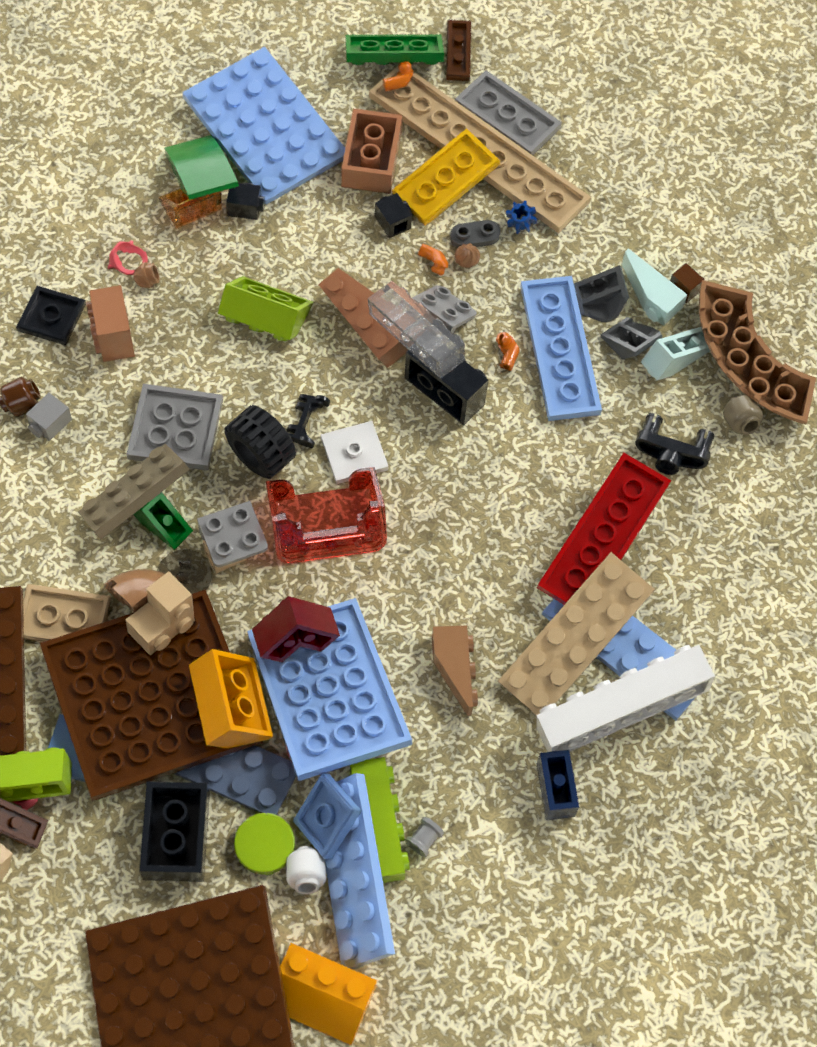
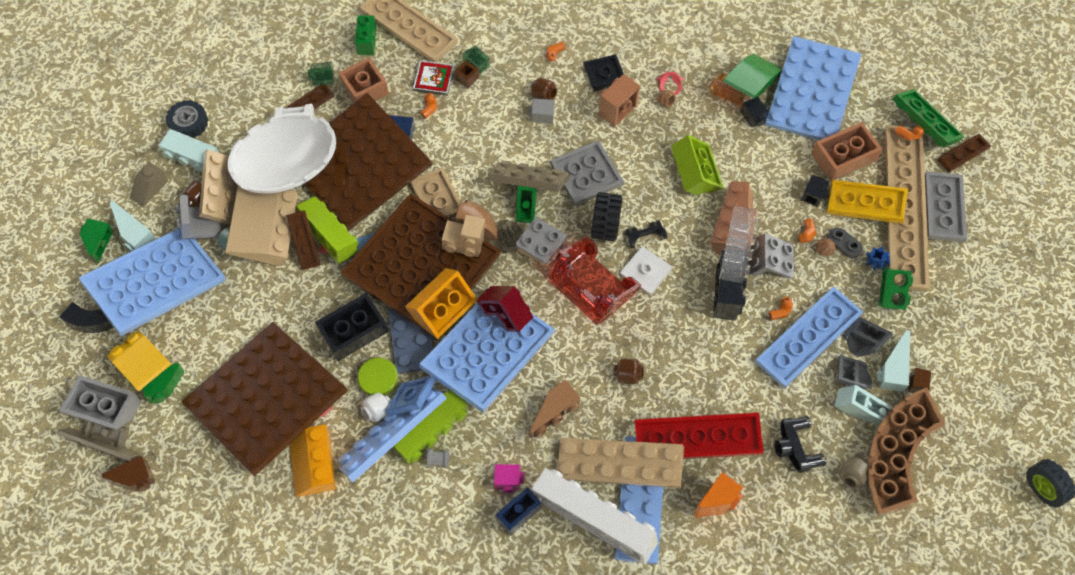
camera: 60 degrees right, 0 degrees up
(468, 554) = (629, 371): none -> reddish brown head
(505, 771) = (508, 477): none -> dark pink brick
(566, 229) = (889, 288): none -> green brick
(683, 560) = (720, 497): none -> orange slope

